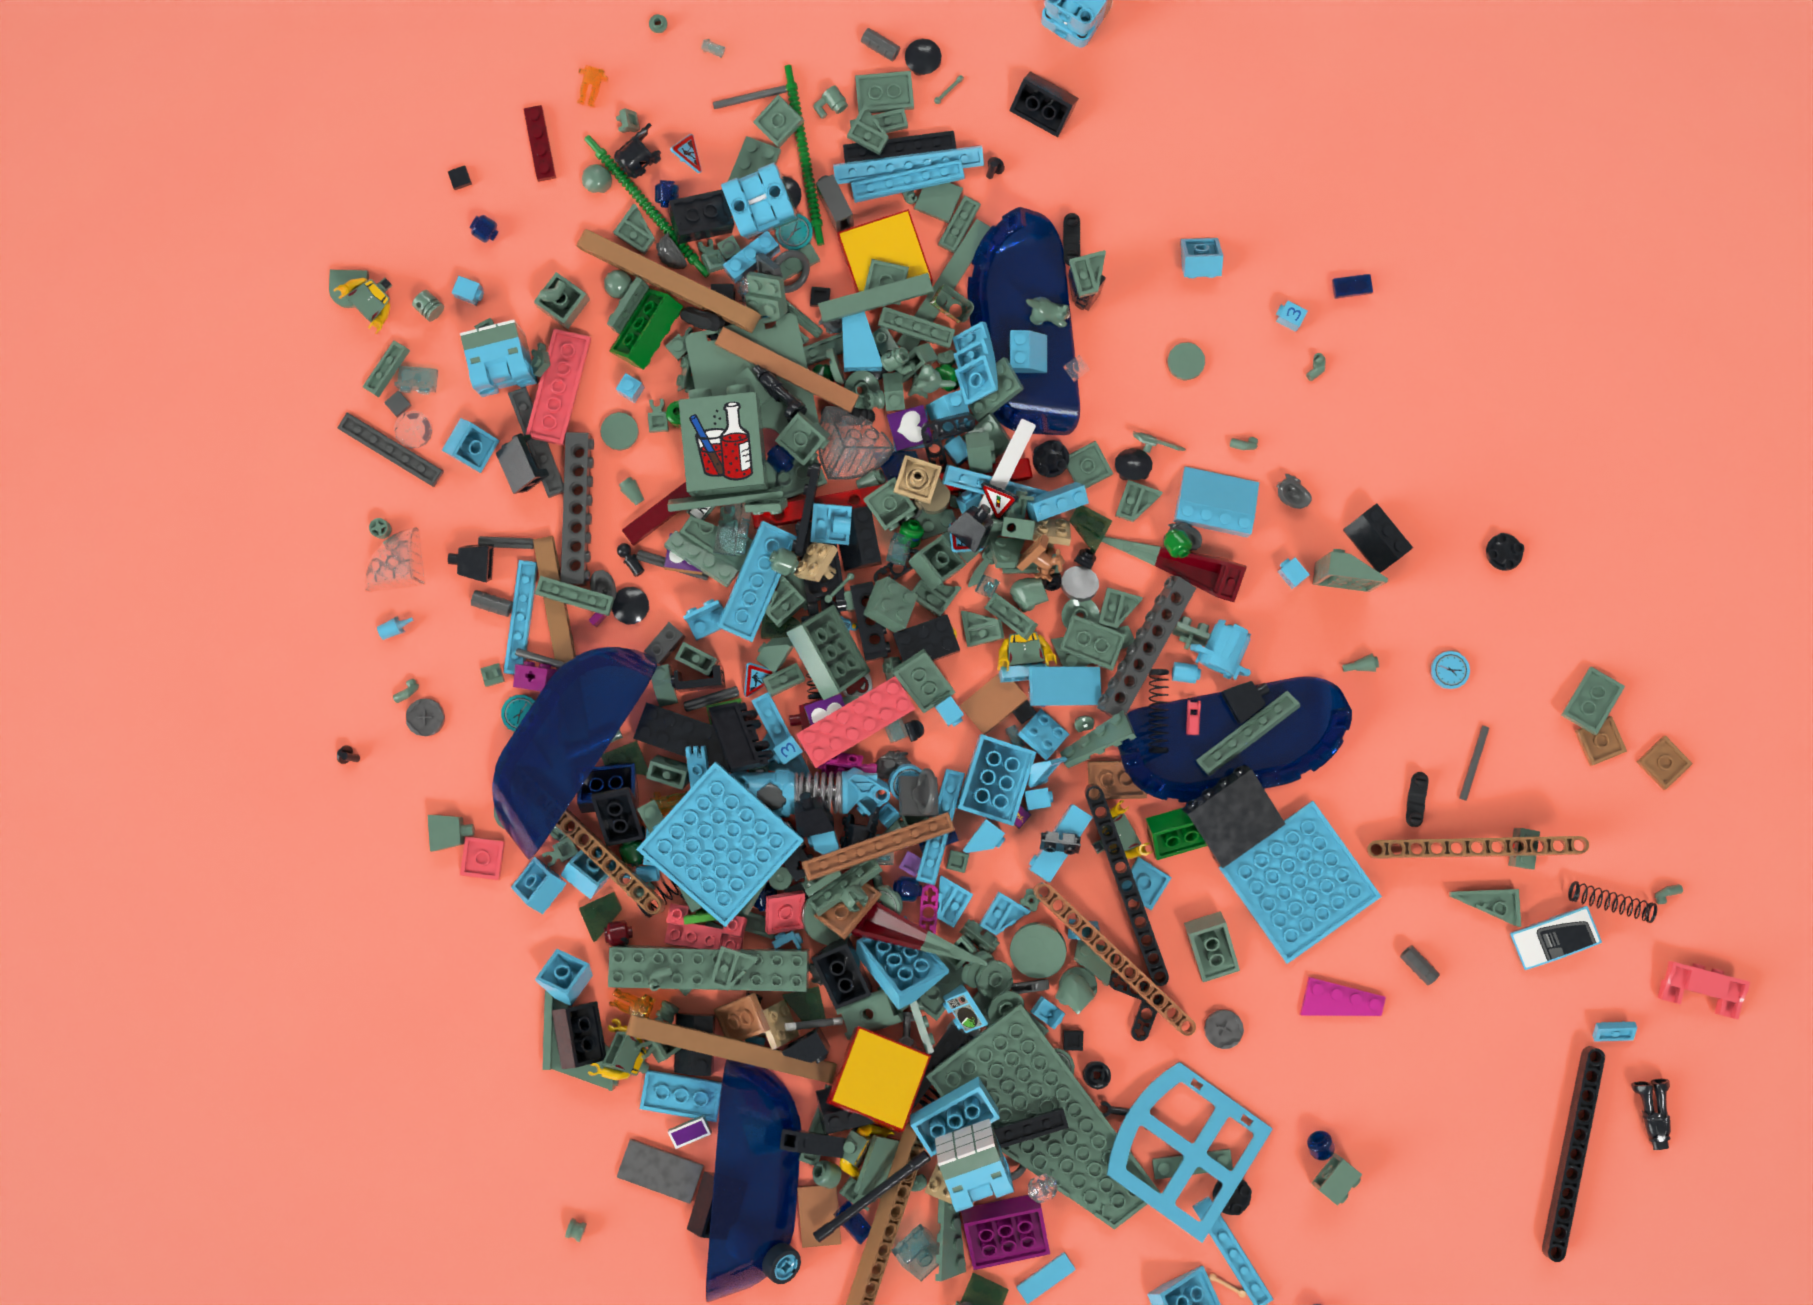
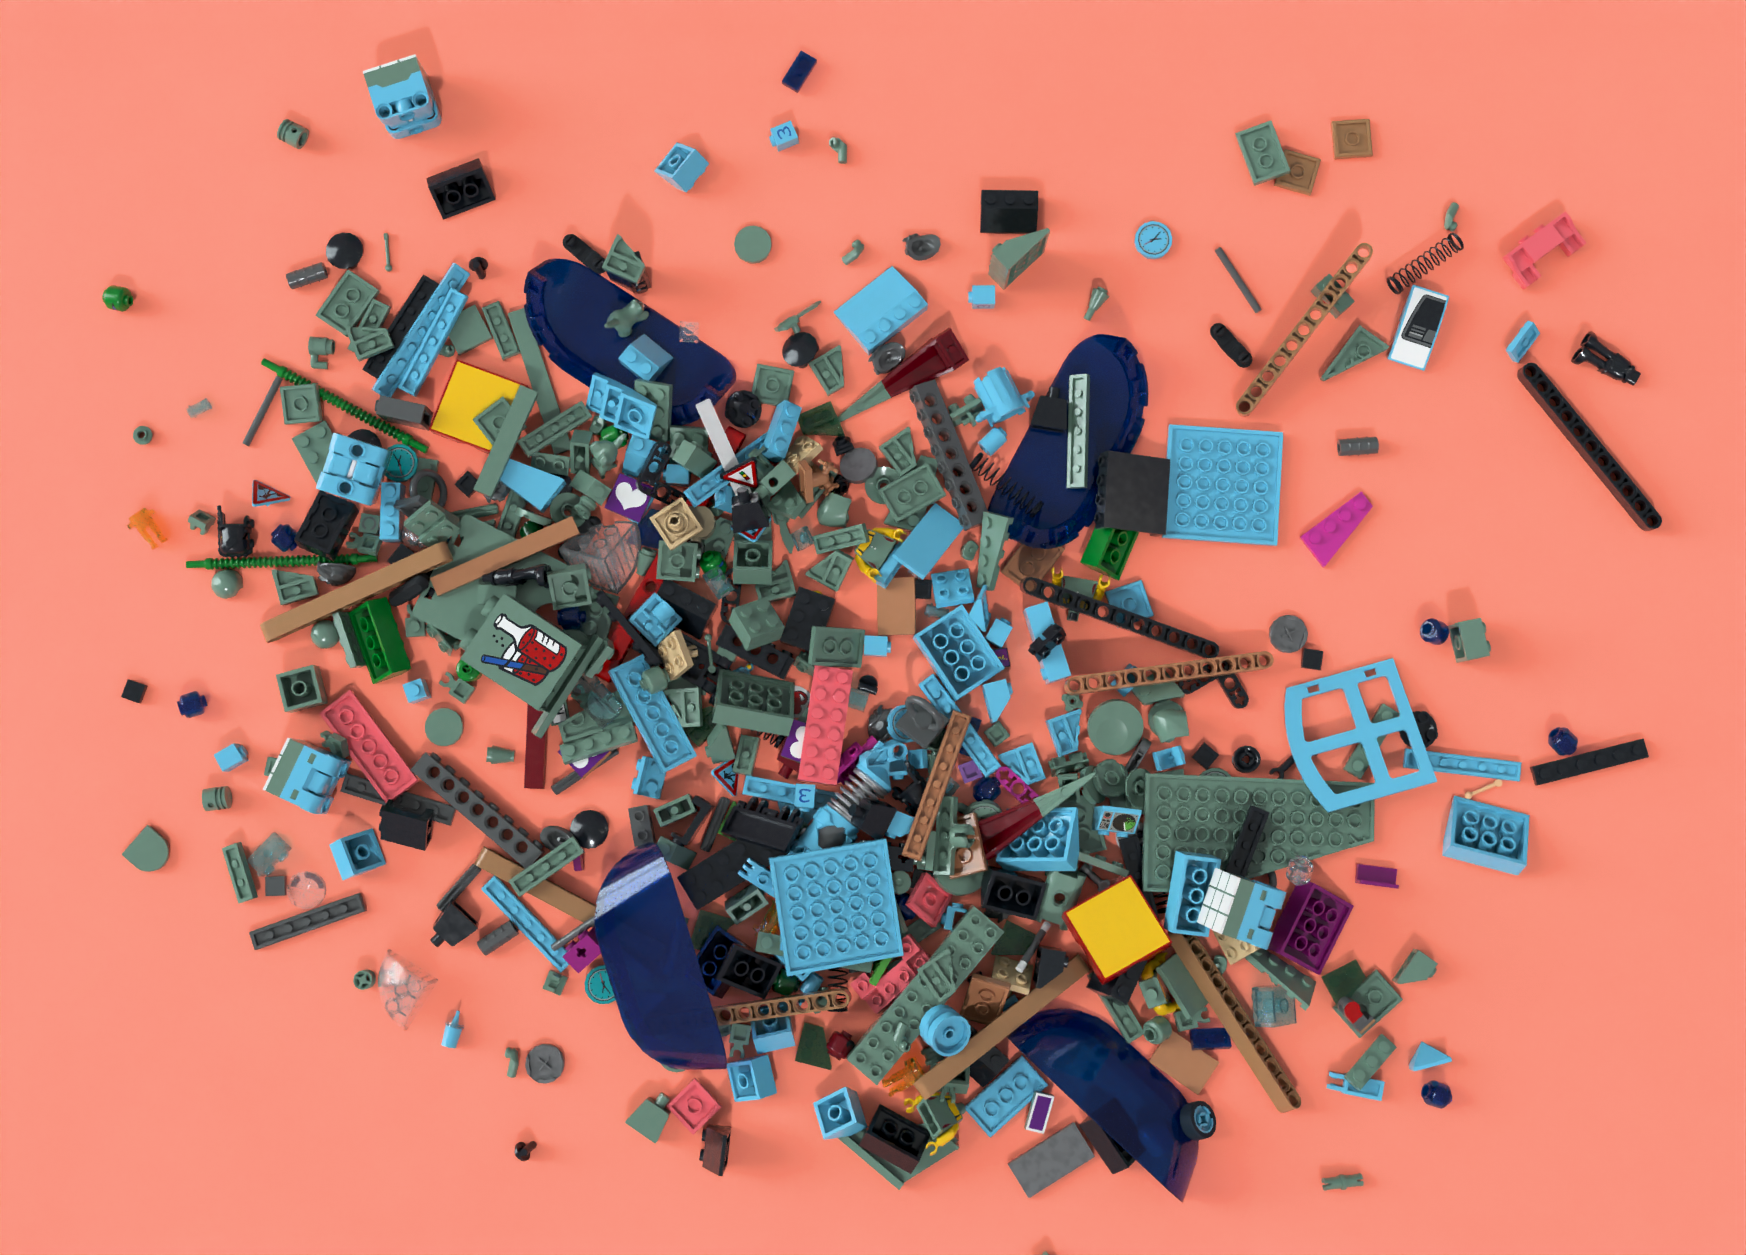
camera: 50 degrees left, 0 degrees up
(368, 299) = (172, 842): torso -> none
(462, 902) = (716, 1148): none -> slope
(539, 143) = (159, 605): dark red plate -> none
(552, 294) = (291, 691): sand green arm -> none
(624, 551) = (542, 799): black pin -> none
(692, 1006) = (945, 1030): none -> medium azure wheel
(812, 1143) = (1124, 1021): black slope -> none
(829, 1228) = (1200, 1060): black piece -> none
(895, 359) = (567, 464): sand green piece -> none
(962, 301) = (559, 378): sand green piece -> none
(1045, 1277) = (1369, 923): medium azure tile -> none
(1088, 1253) = (1376, 876): none -> magenta panel
(1177, 543) = (889, 365): green head -> none
(1193, 721) = (1034, 465): coral bar -> none
(1212, 946) = (1218, 591): sand green slope -> none
(1219, 1064) = (1311, 659): none -> black tile
(1504, 552) = (1096, 125): black dish -> none

